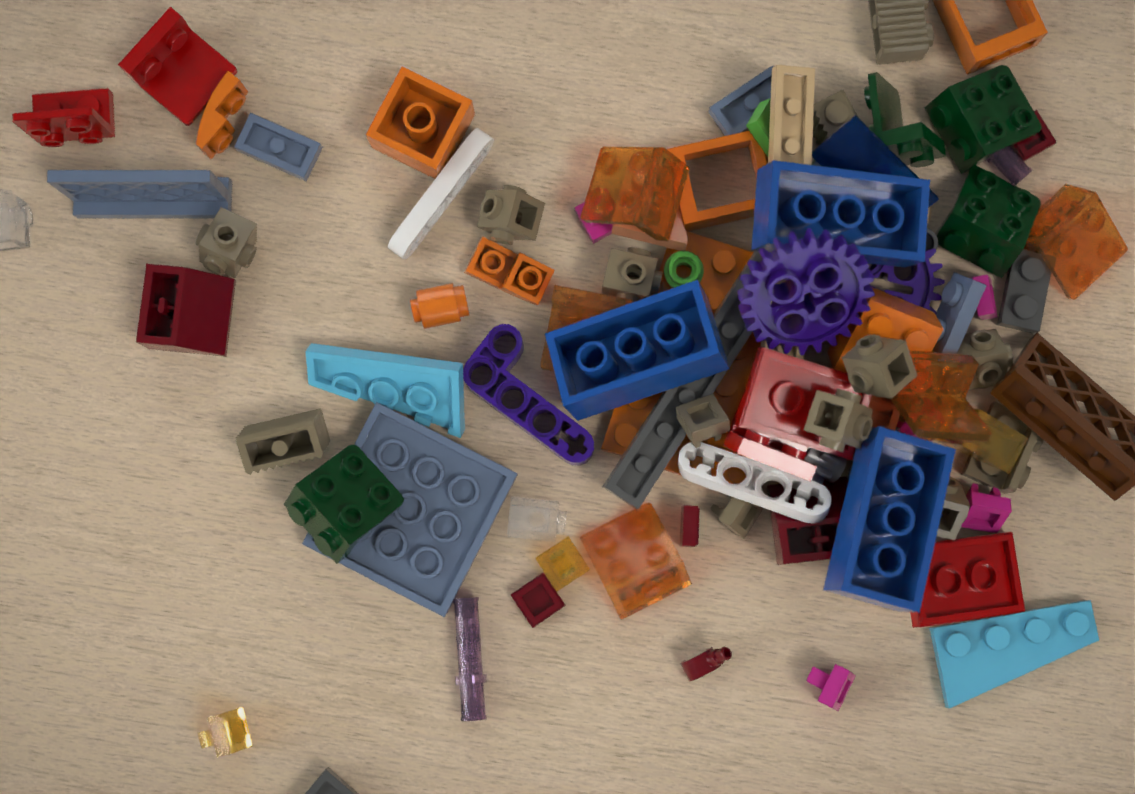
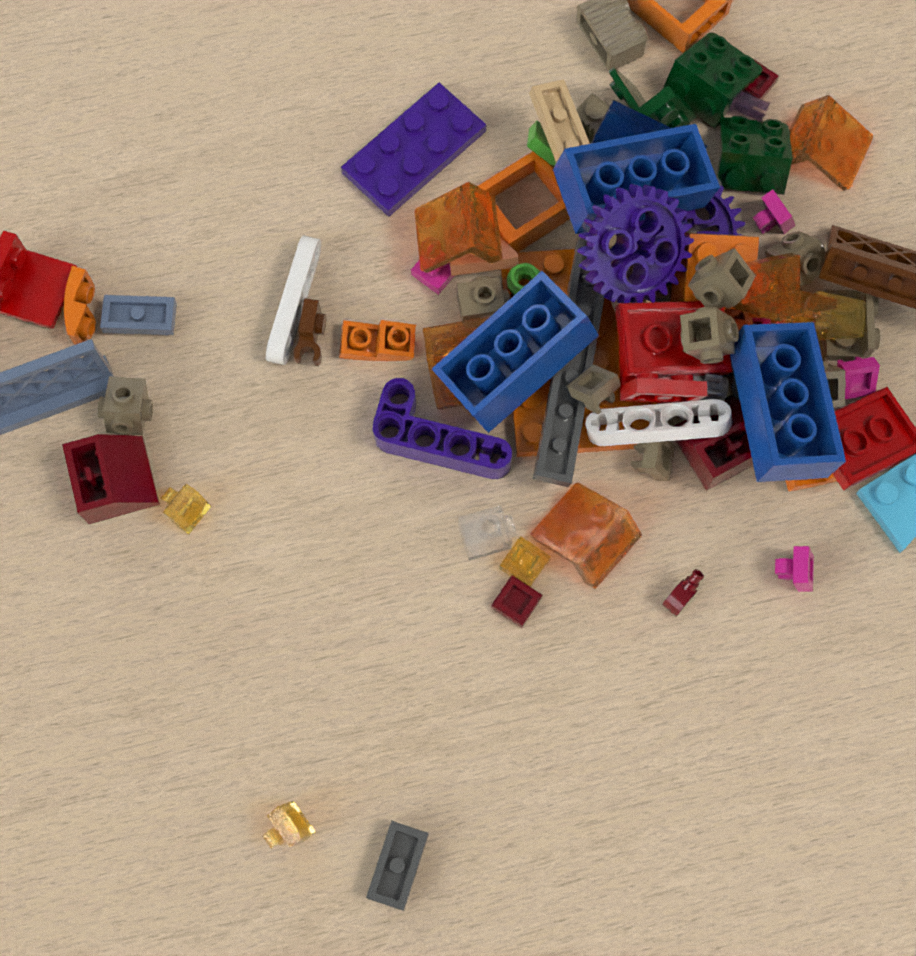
camera: 25 degrees left, 10 degrees down
(247, 372) = (185, 507): none -> clear yellow tile
(283, 441) = (239, 550): dark tan brick -> none
(342, 501) = (312, 580): dark green bracket -> none
(409, 384) = (328, 463): medium azure wing -> none
(420, 123) = (254, 248): orange brick -> none
(439, 305) = (330, 389): orange brick -> none
(444, 514) = (374, 568): sand blue plate -> none
(446, 230) = (311, 324): none -> reddish brown plate
(469, 655) = (482, 680): clear purple pin -> none
(510, 215) = (360, 292): dark tan brick -> none
(633, 72) = (413, 149): none -> dark purple plate
(689, 526) = (619, 485): dark red tile -> none
(737, 108) = (513, 140): sand blue plate -> none
(956, 311) = (761, 222): sand blue plate -> none
(1025, 293) = (808, 198): dark grey plate -> none

